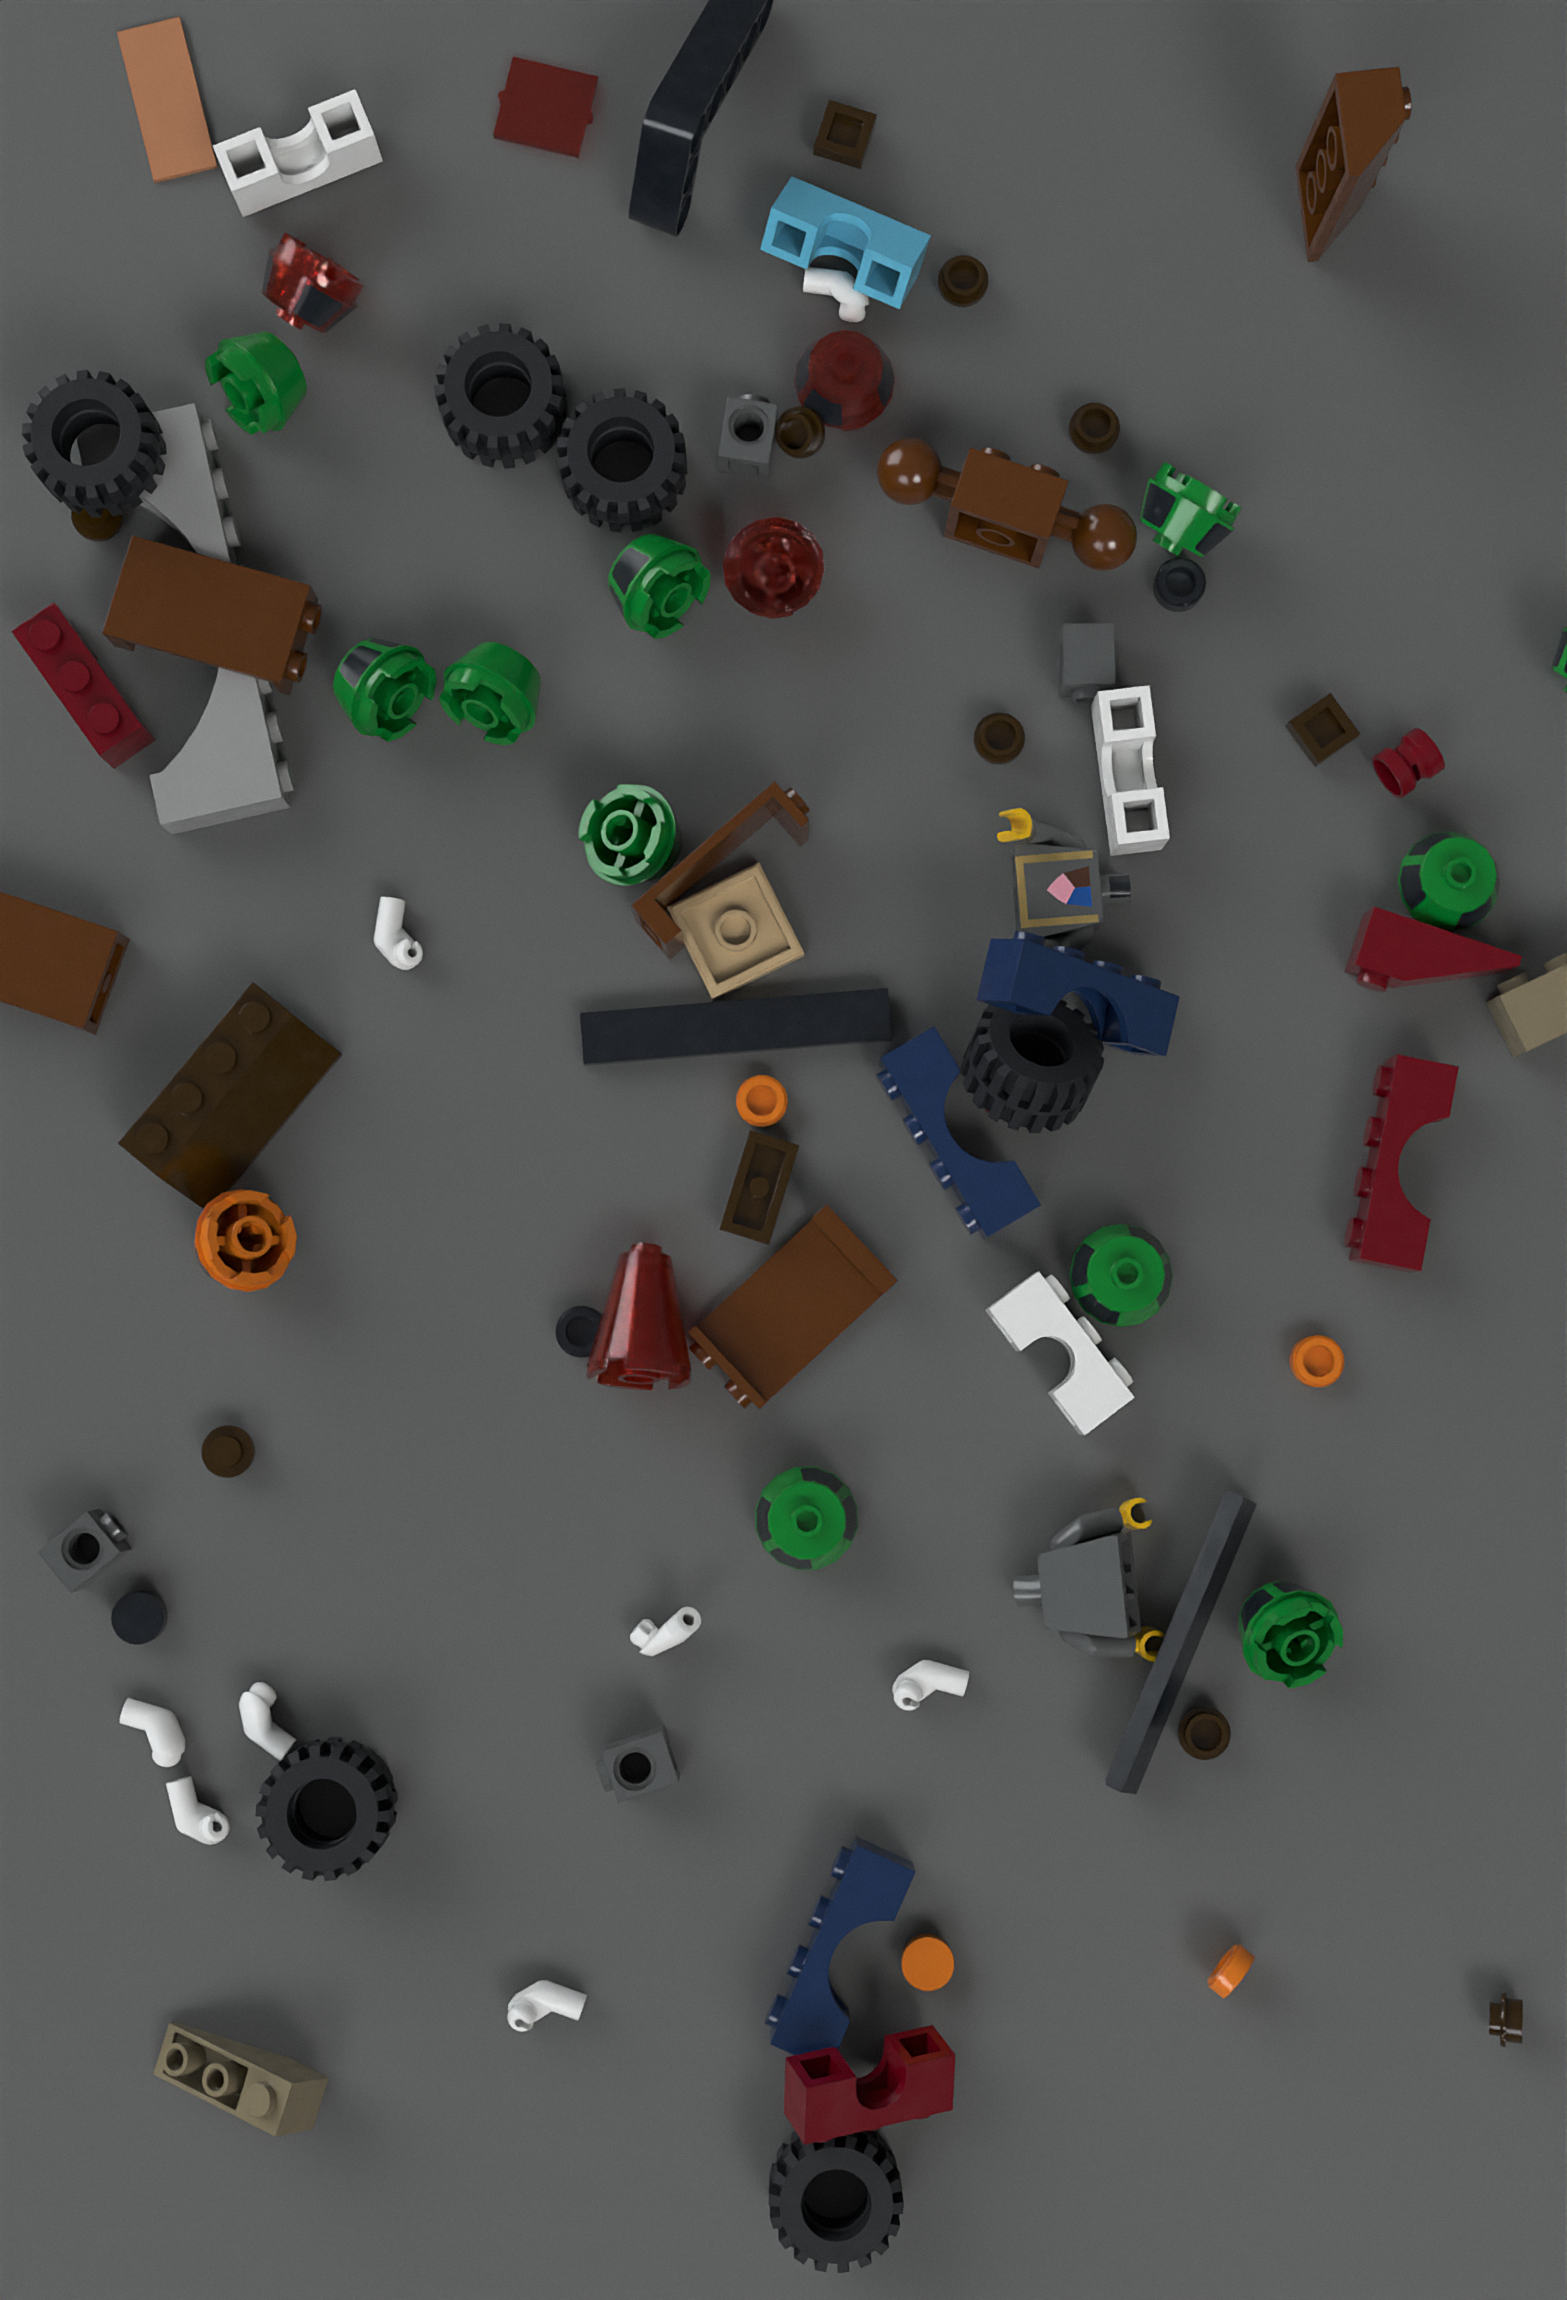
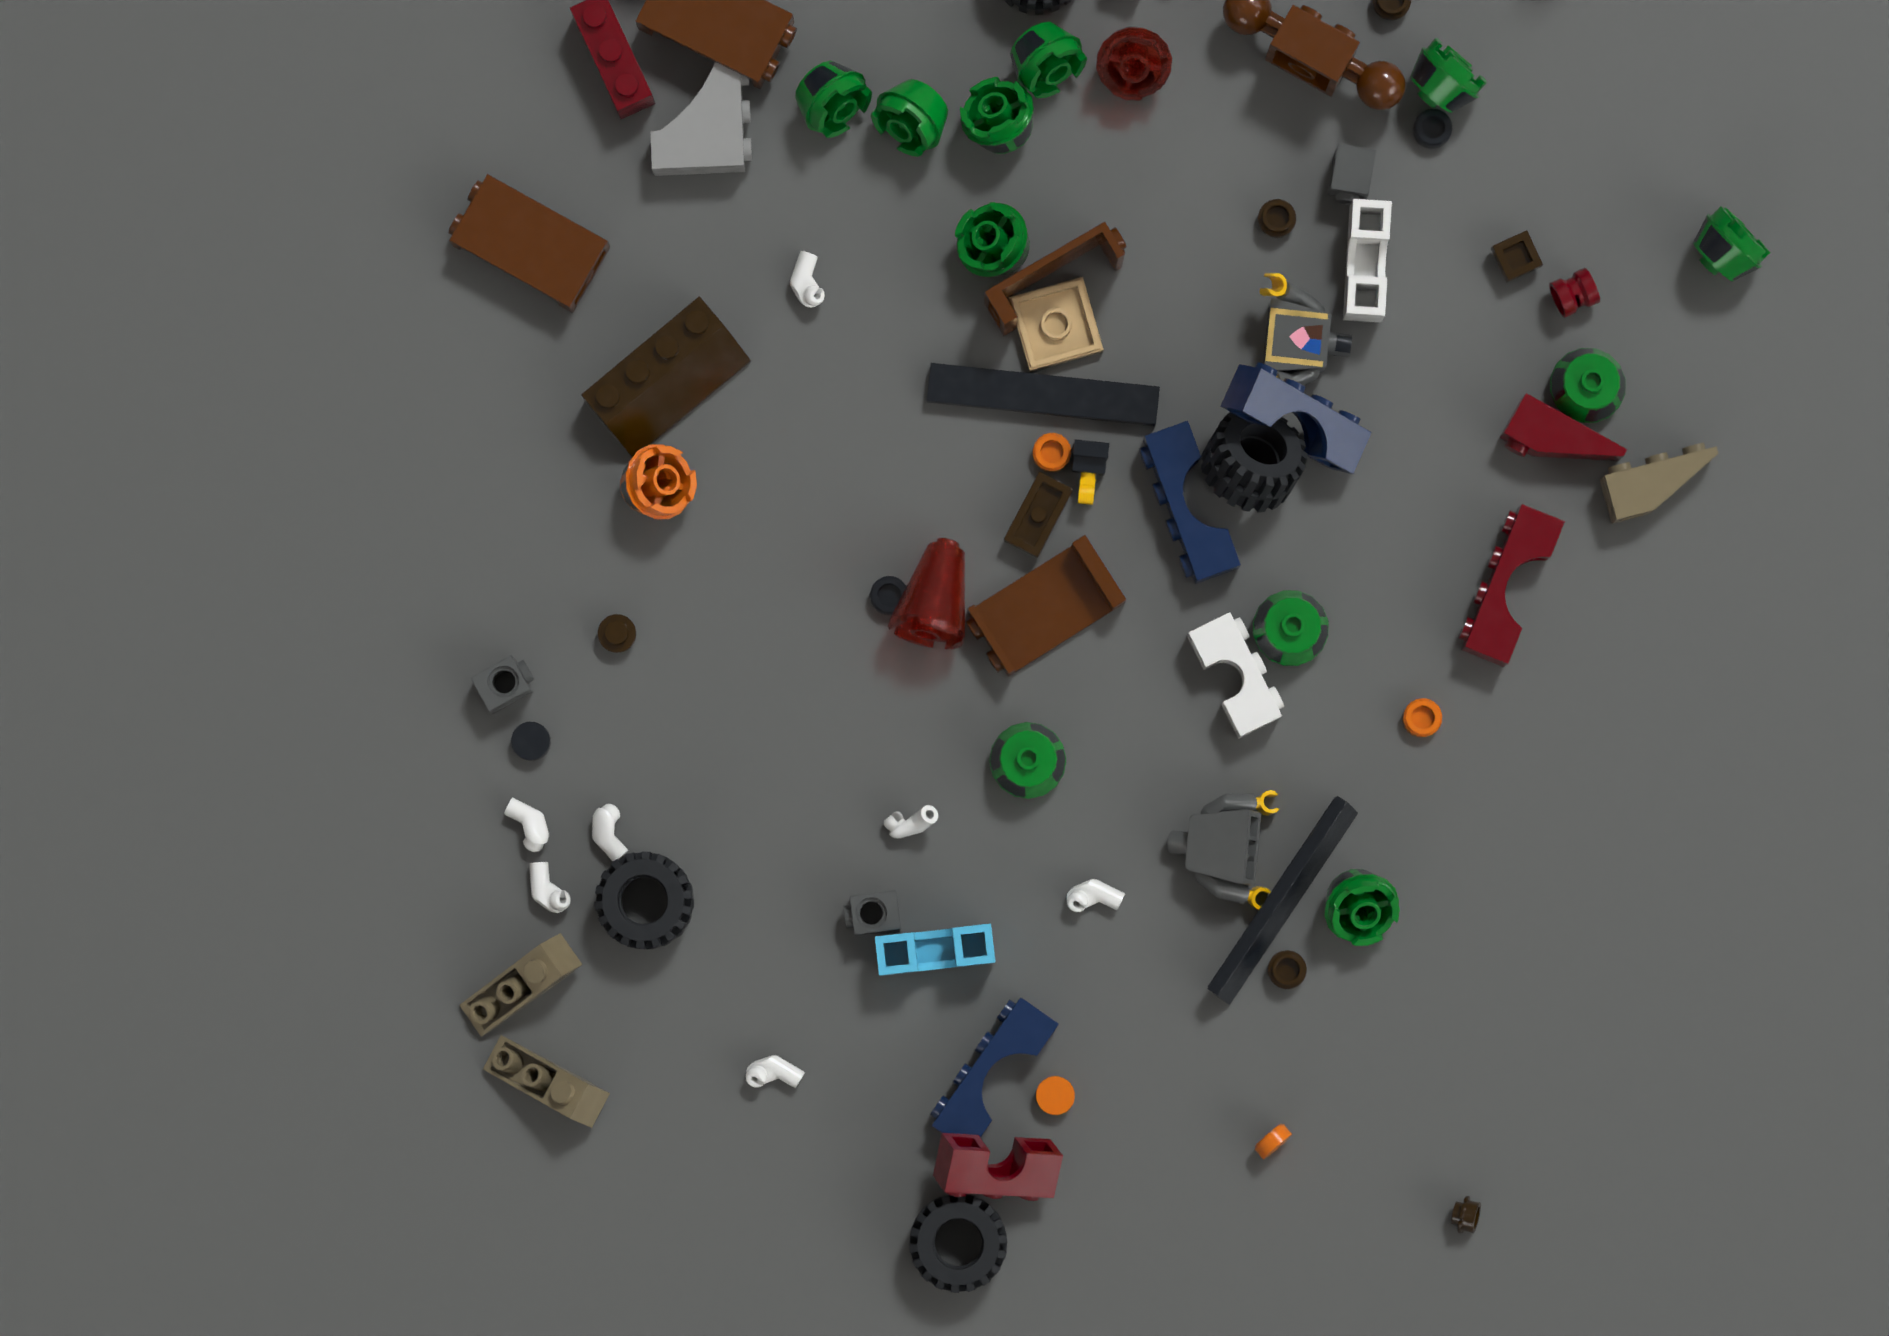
camera: 15 degrees right, 0 degrees up
(183, 1950) = (521, 984): none -> dark tan slope
(607, 670) = (998, 115): none -> green cone
(742, 1794) = (935, 949): none -> medium azure arch
(814, 1102) = (1089, 460): none -> black piece

